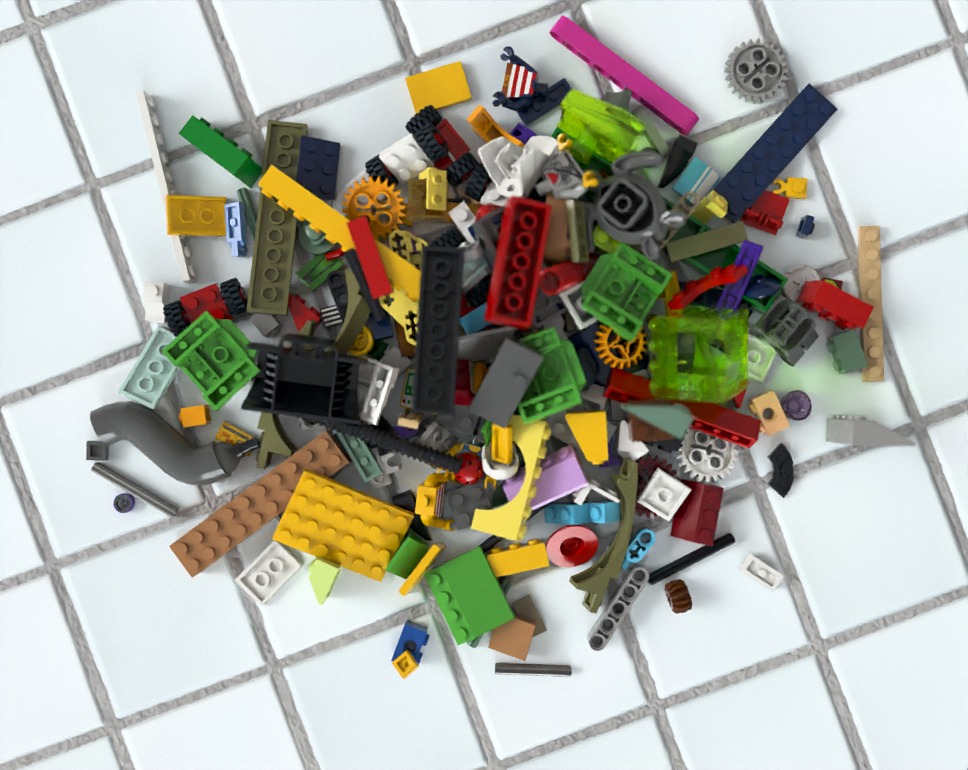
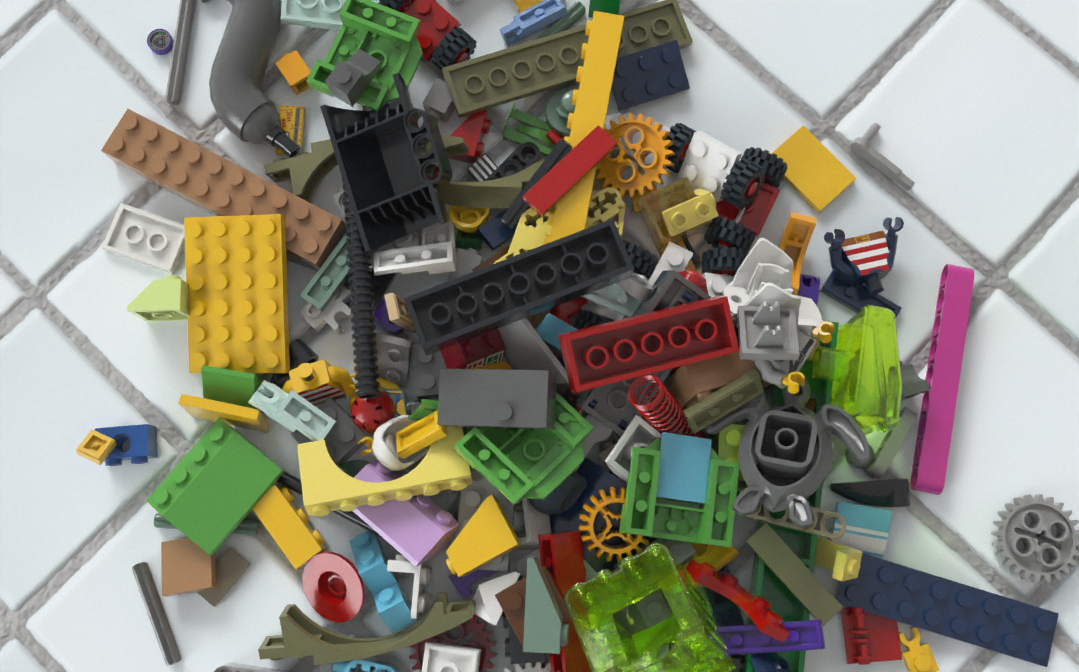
camera: 70 degrees right, 10 degrees down
(228, 376) = (352, 77): none -> dark grey arch
(440, 45) = (862, 148): none -> light grey piece
(445, 522) = (292, 411): none -> light aqua plate
(548, 180) = (767, 332): none -> light grey plate
(607, 279) = (683, 467): none -> medium azure sticker

